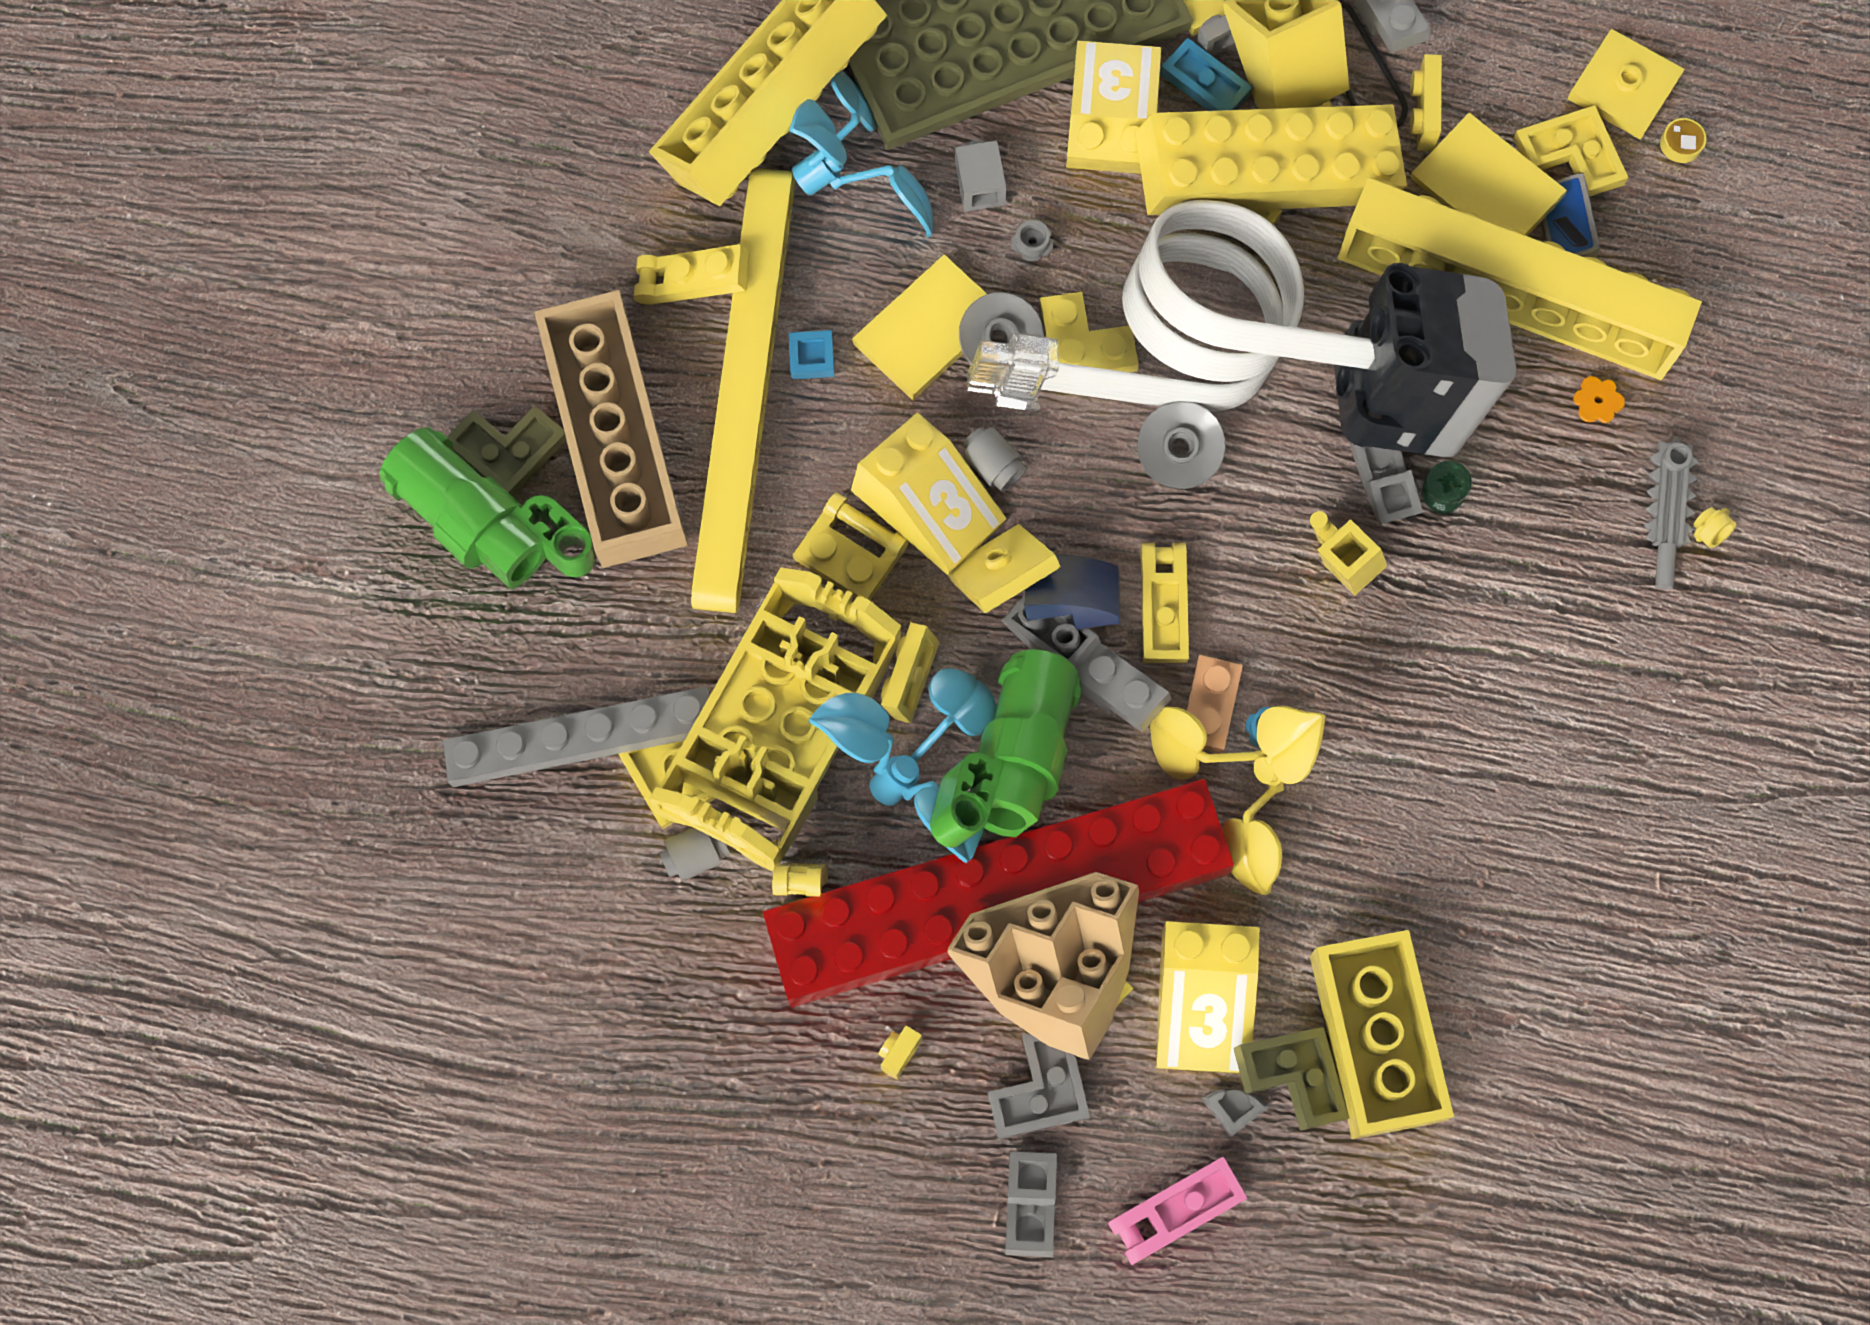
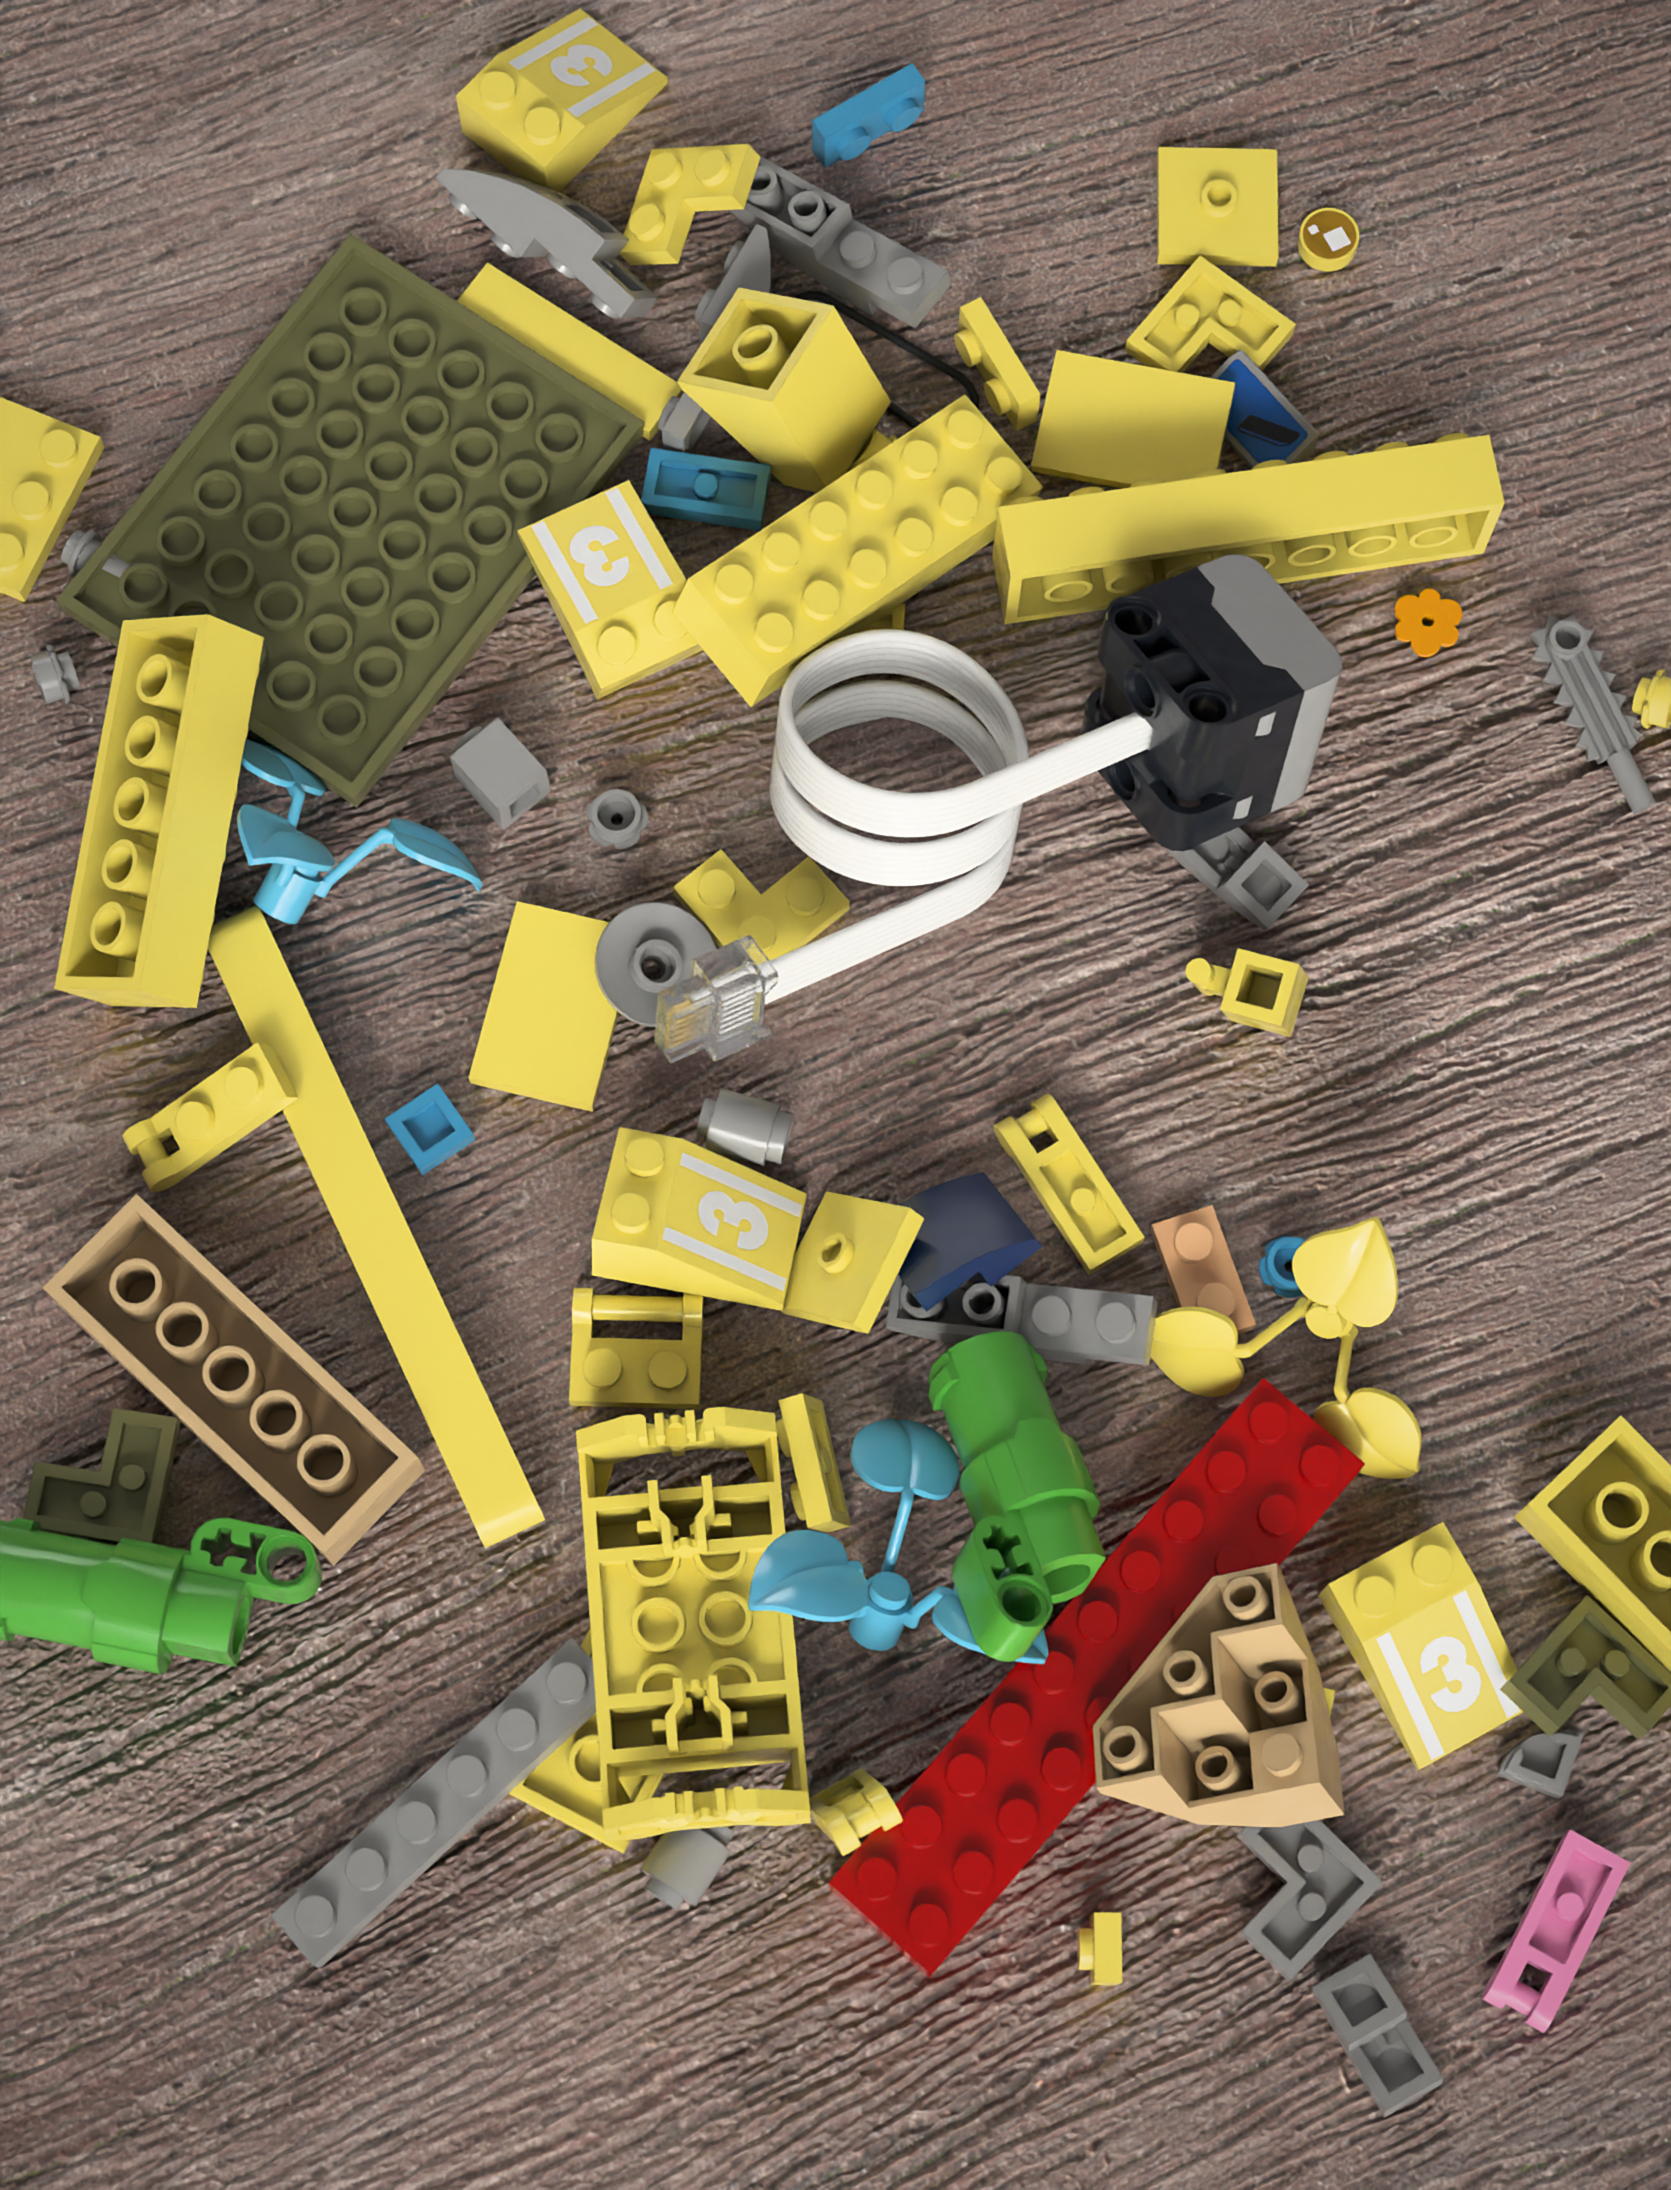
camera: 35 degrees left, 0 degrees up
(1181, 422) = (990, 951): light grey dish -> none
(1441, 496) = (1311, 849): clear green wheel -> none

